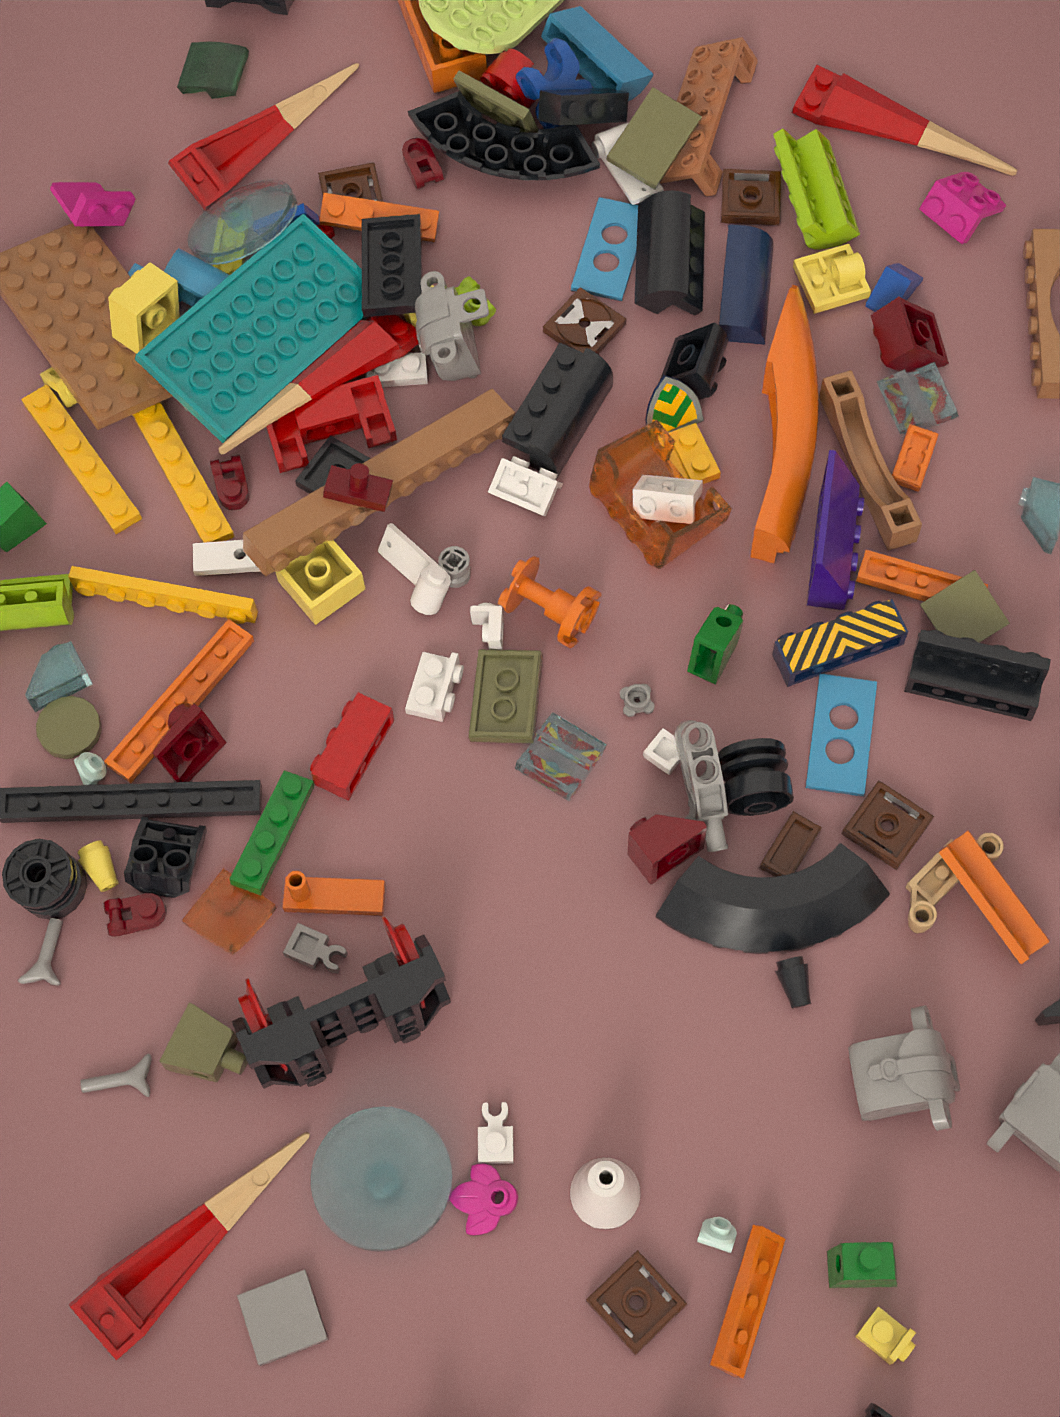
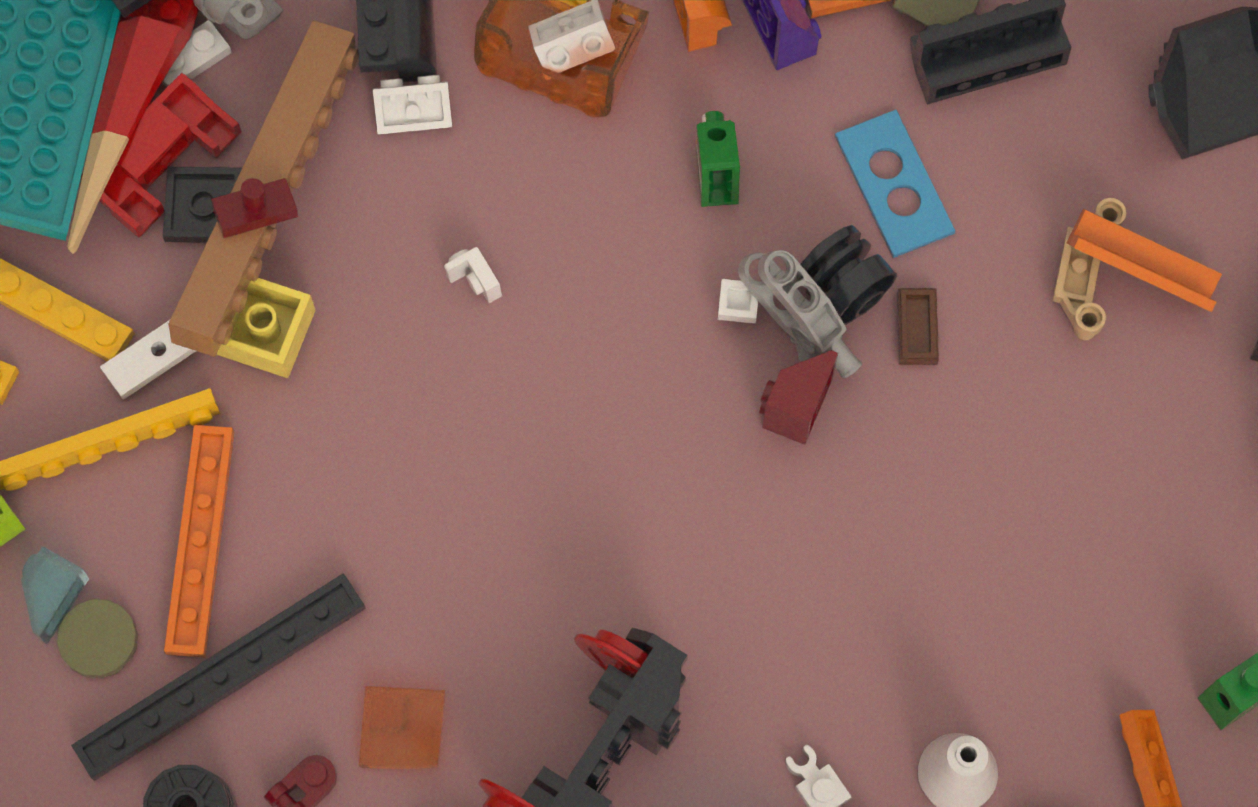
camera: 35 degrees left, 5 degrees up
(90, 768) = (152, 668): light aqua plate -> none
(97, 863) = (232, 761): light yellow cone -> none
(163, 857) = (297, 712): black slope -> none
(187, 743) = (243, 578): dark red slope -> none
(232, 491) = (101, 286): dark red plate -> none
(272, 833) = (392, 619): green plate -> none
(309, 947) = (508, 711): light grey plate -> none
(333, 895) = (497, 645): orange piece -> none
(352, 745) = (414, 481): red brick -> none
(428, 577) = (380, 260): white door -> none
(433, 686) = (456, 371): white bracket -> none
(459, 573) = (400, 240): light grey wheel -> none
(505, 696) = (537, 338): olive tile -> none
(560, 756) = (633, 367): clear light blue slope -> none
(570, 612) = (538, 212): orange piece -> none
(639, 691) = (672, 254): light grey plate -> none
(718, 1234) = (1089, 744): light aqua plate -> none
(773, 911) = (944, 401): black brick -> none
(795, 980) = (1006, 455): black cone -> none
(839, 642) = (836, 90): brick -> none
(877, 808) = (981, 267): reddish brown piece -> none
(905, 1073) = (1169, 484): light grey piece -> none

